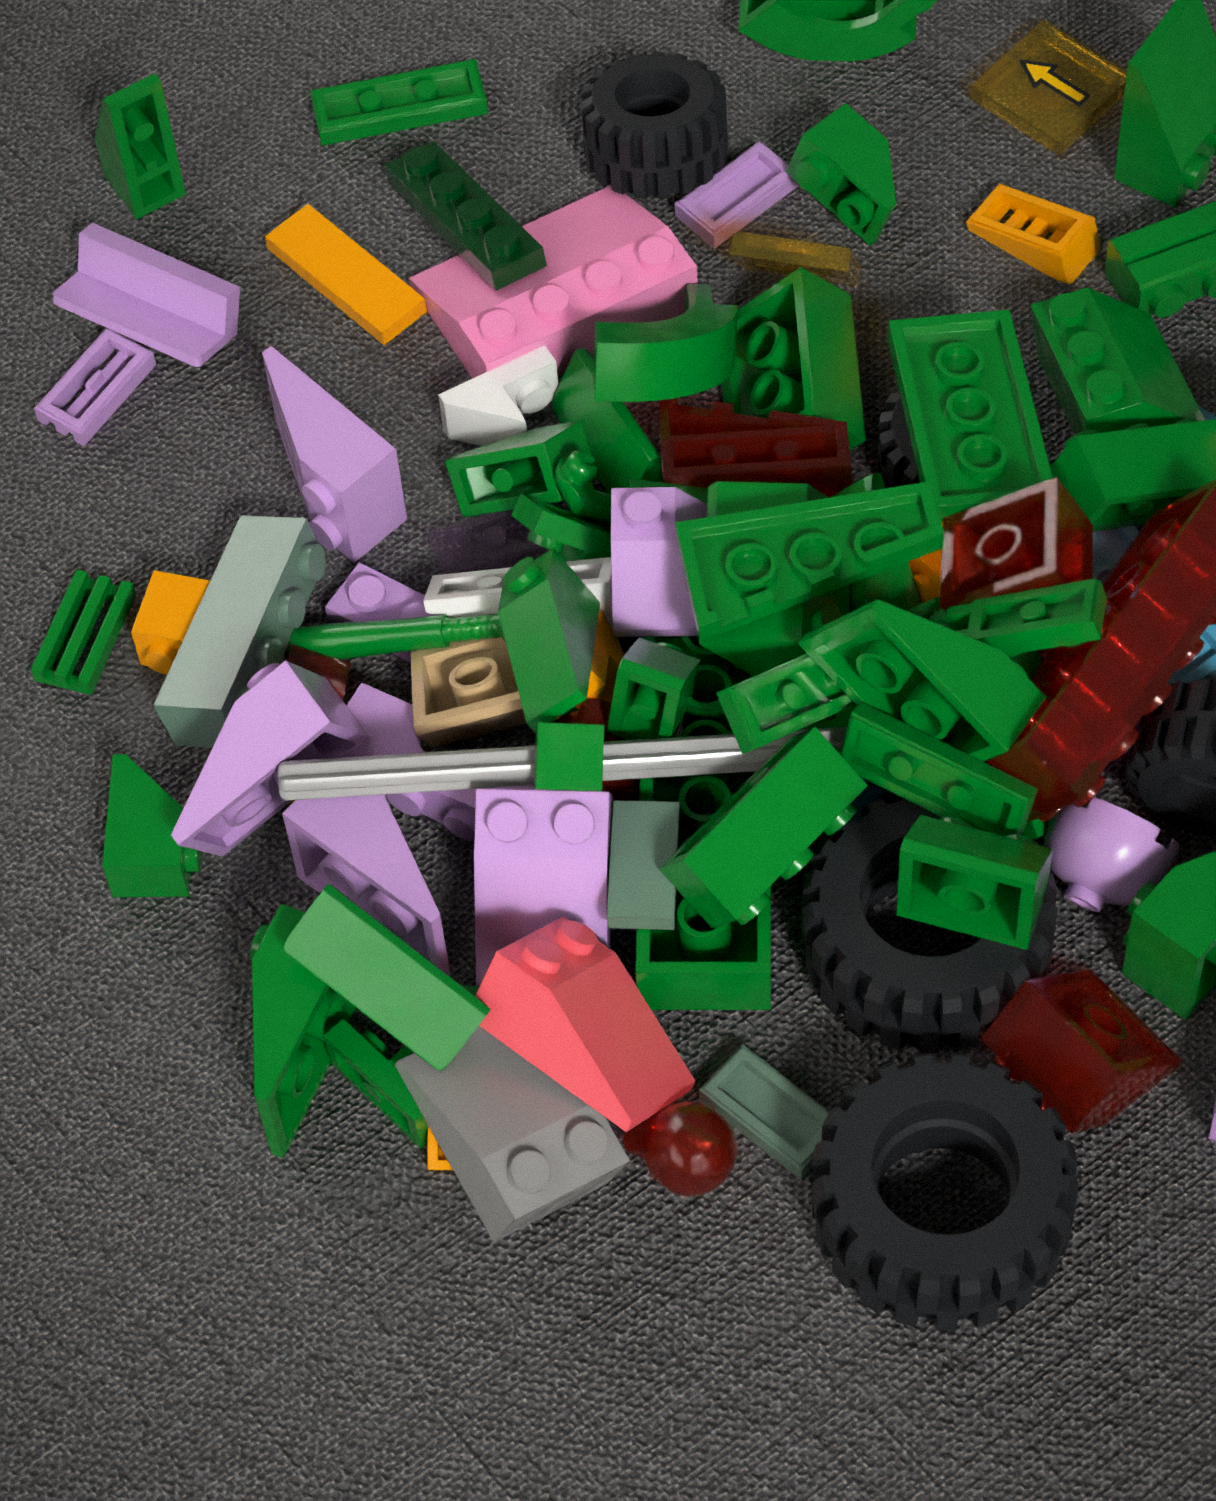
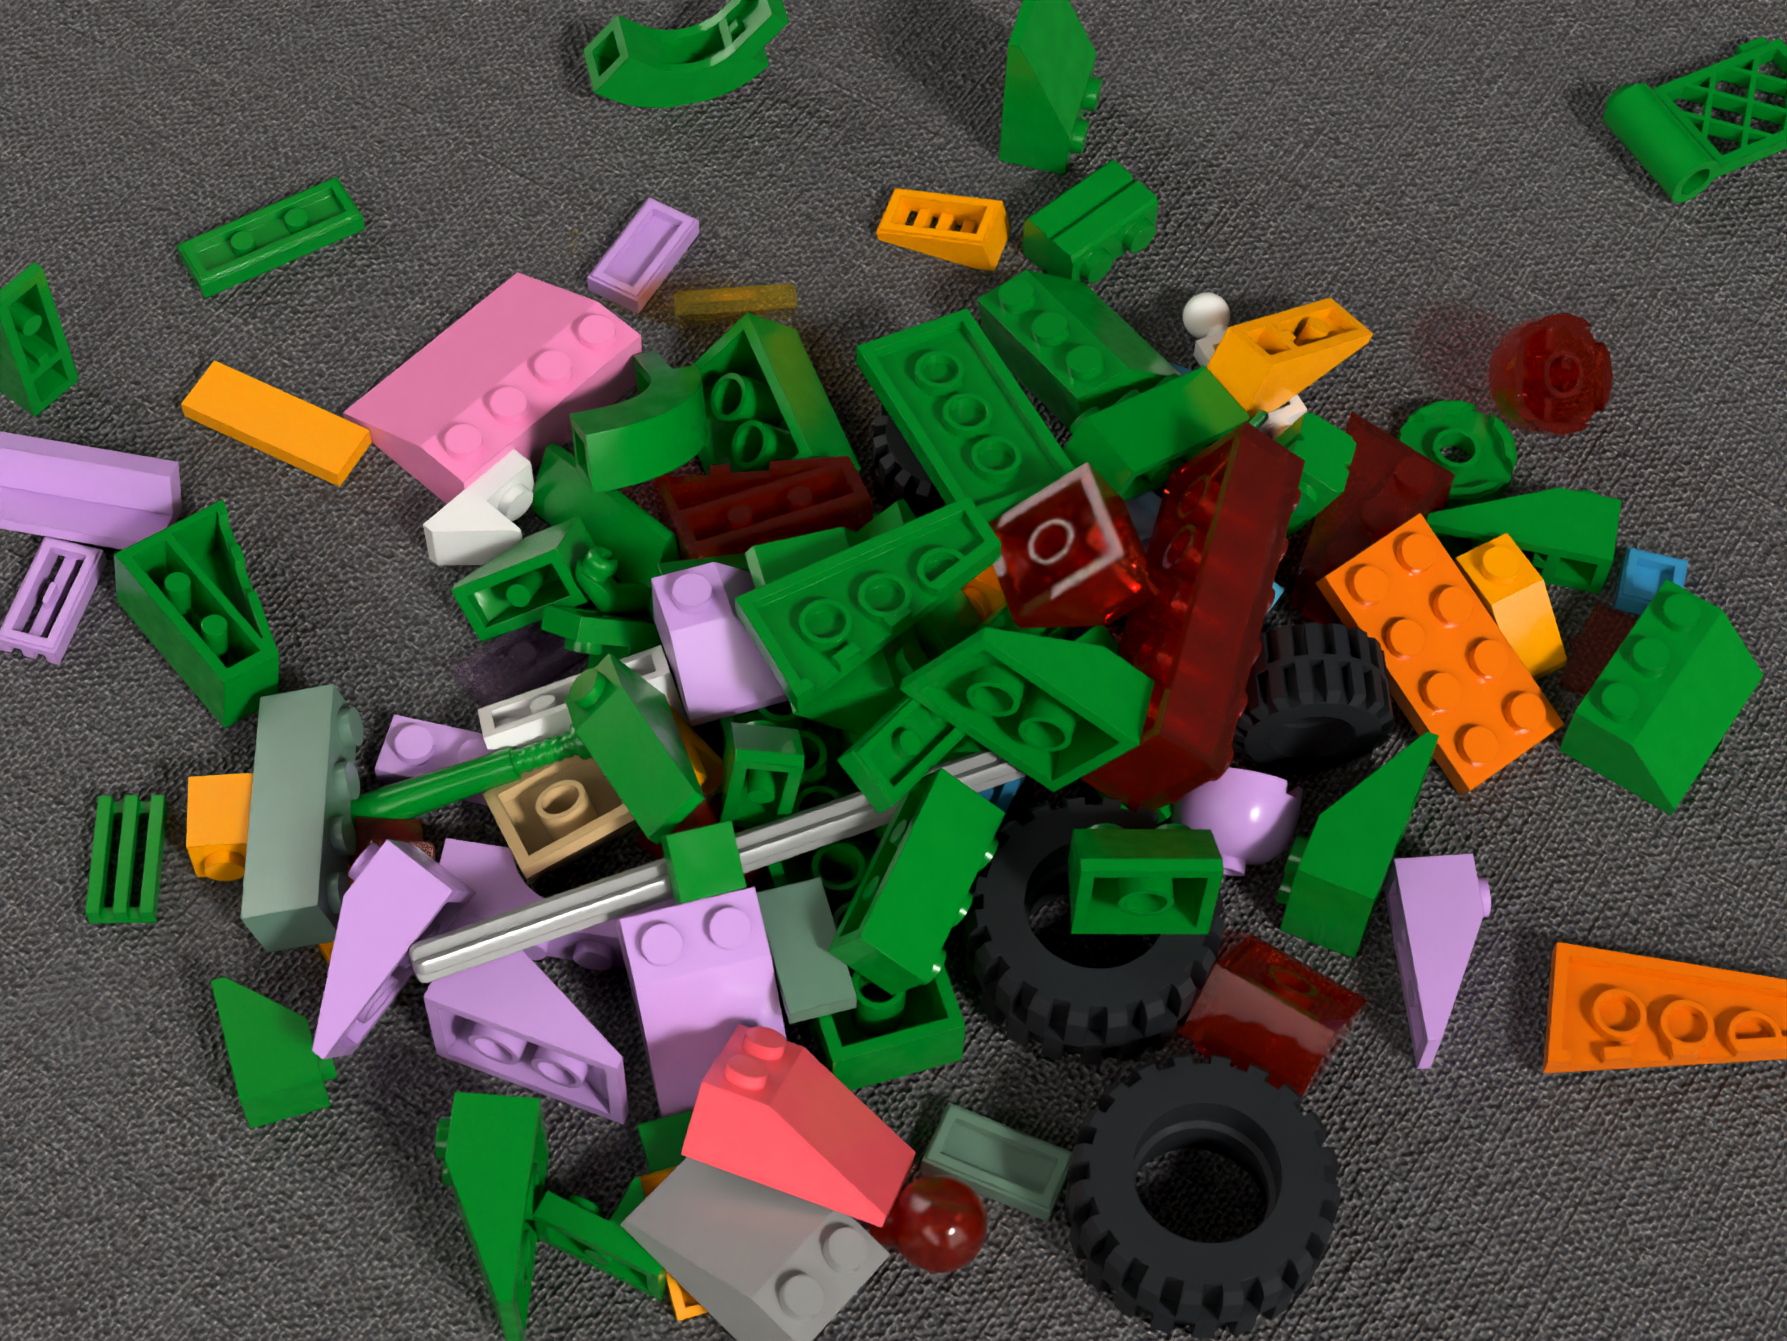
camera: 25 degrees left, 0 degrees up
(215, 425) = (201, 612): none -> green wedge
(339, 462) = (337, 615): lavender slope -> none
(385, 978) = (592, 1139): slope -> none
(465, 215) = (385, 336): dark green plate -> none
(654, 125) = (545, 204): black tyre -> none
(847, 171) = (751, 209): green slope -> none
(935, 773) = (1066, 784): green tile -> none
(1032, 618) = (1112, 606): green hinge -> none
(1050, 87) = (910, 84): clear yellow tile -> none

